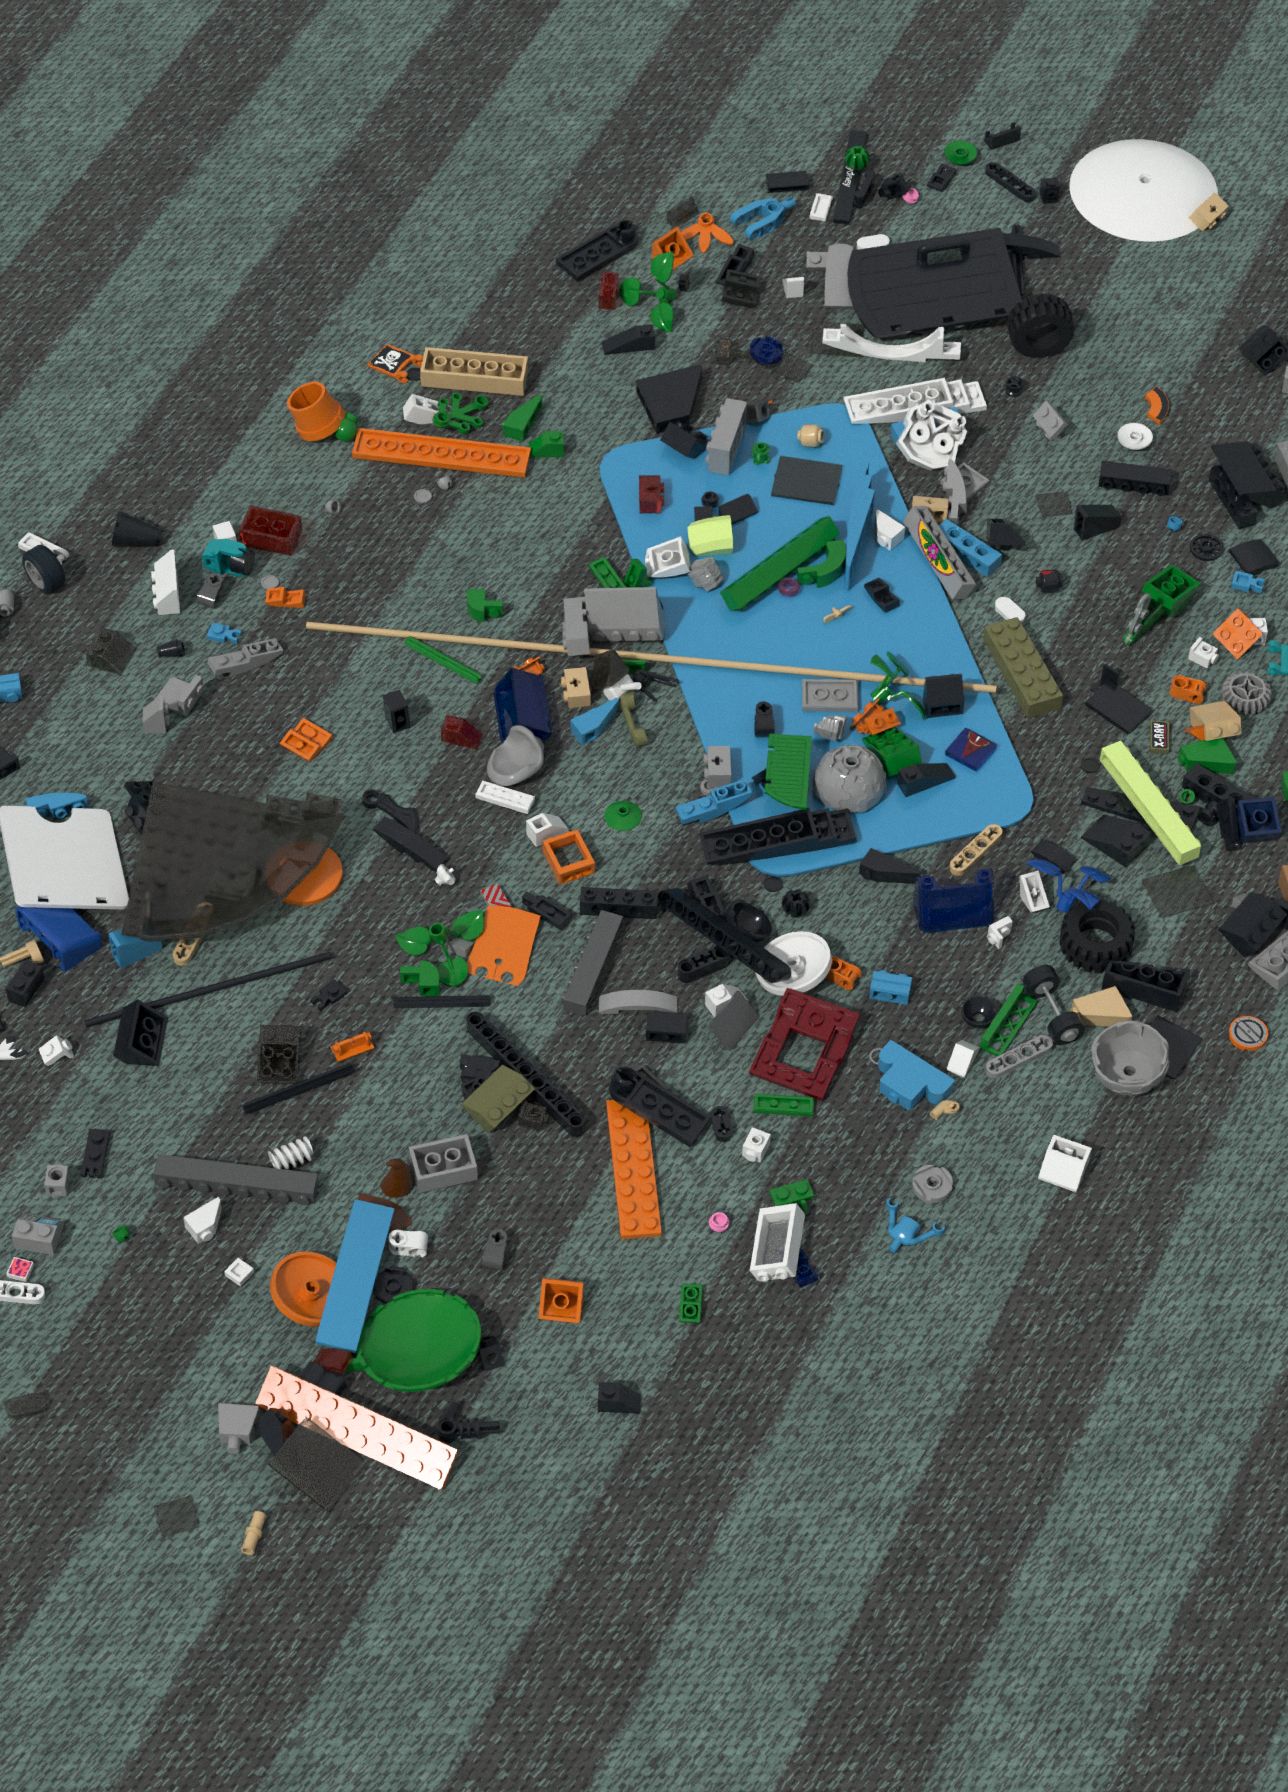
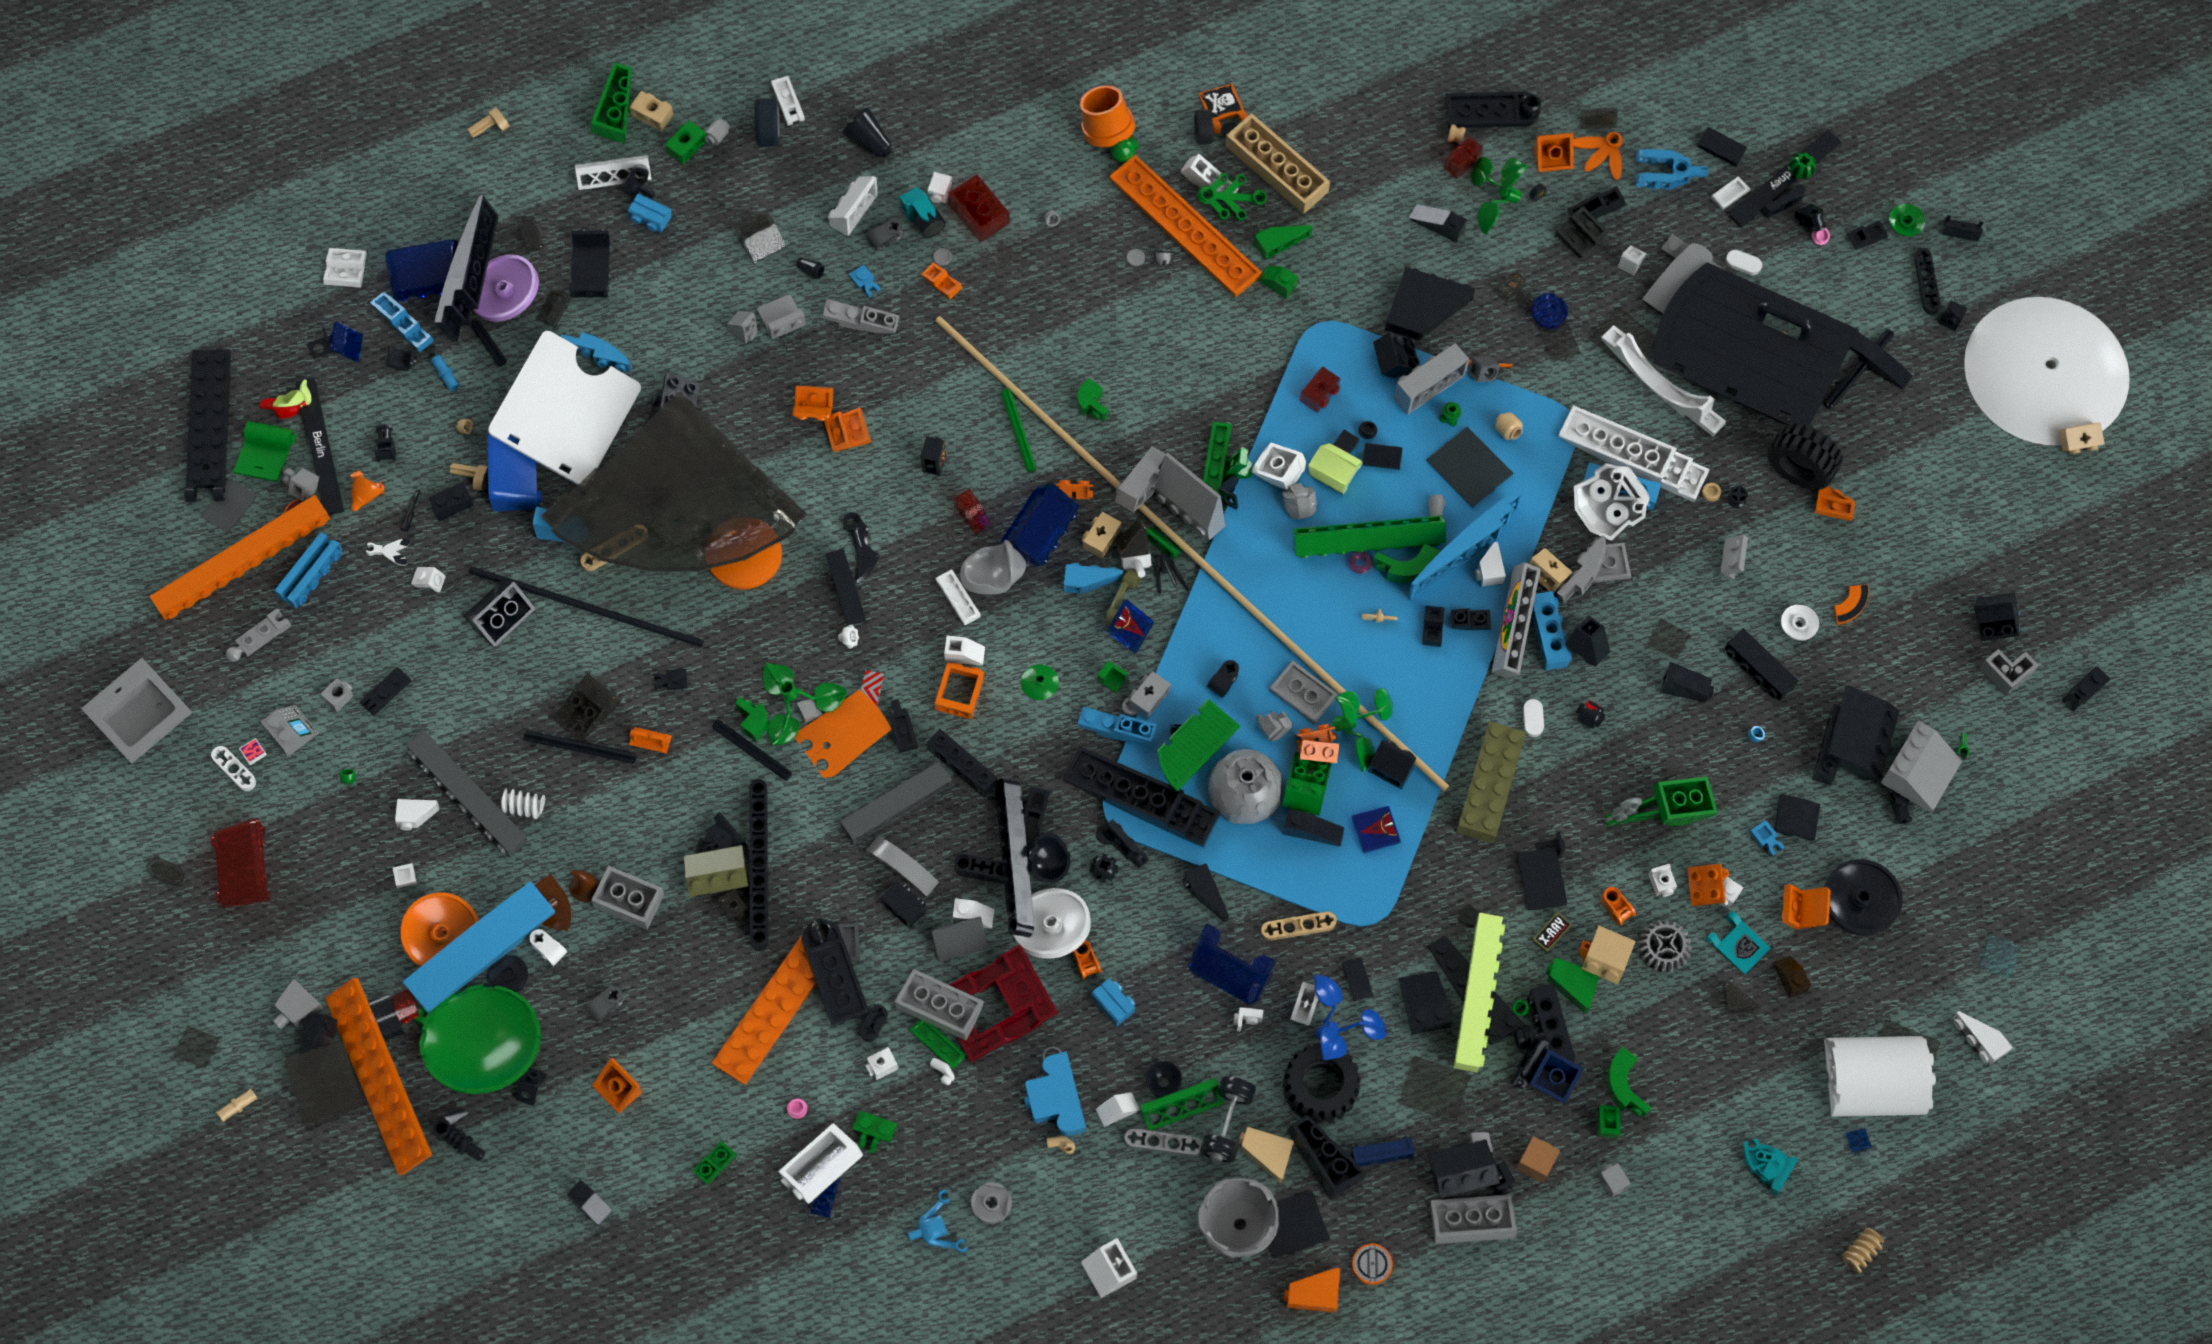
camera: 35 degrees right, 15 degrees up
(92, 1350) = (241, 864): none -> clear red windscreen
(261, 734) = (813, 402): none -> orange bracket
(395, 379) = (1203, 127): none -> black tyre
(589, 280) = (1456, 134): none -> tan wheel
(658, 732) = (1130, 626): none -> clear blue tile
(676, 774) = (1112, 677): none -> green panel
(762, 1073) = (939, 1004): none -> light grey slope
(794, 877) = (1124, 843): none -> black hinge
(807, 515) = (1436, 505): none -> light grey cone
(808, 1117) = (944, 1068): none -> white arm
(906, 574) = (1470, 620): none -> black slope
(992, 395) = (1711, 492): none -> tan tile
(1084, 351) = (1834, 504): none -> orange wing
(1186, 951) = (1383, 1152): none -> dark blue container
(1206, 546) = (1765, 777): black wheel -> none
(1228, 1077) = (1314, 1292): none -> orange slope

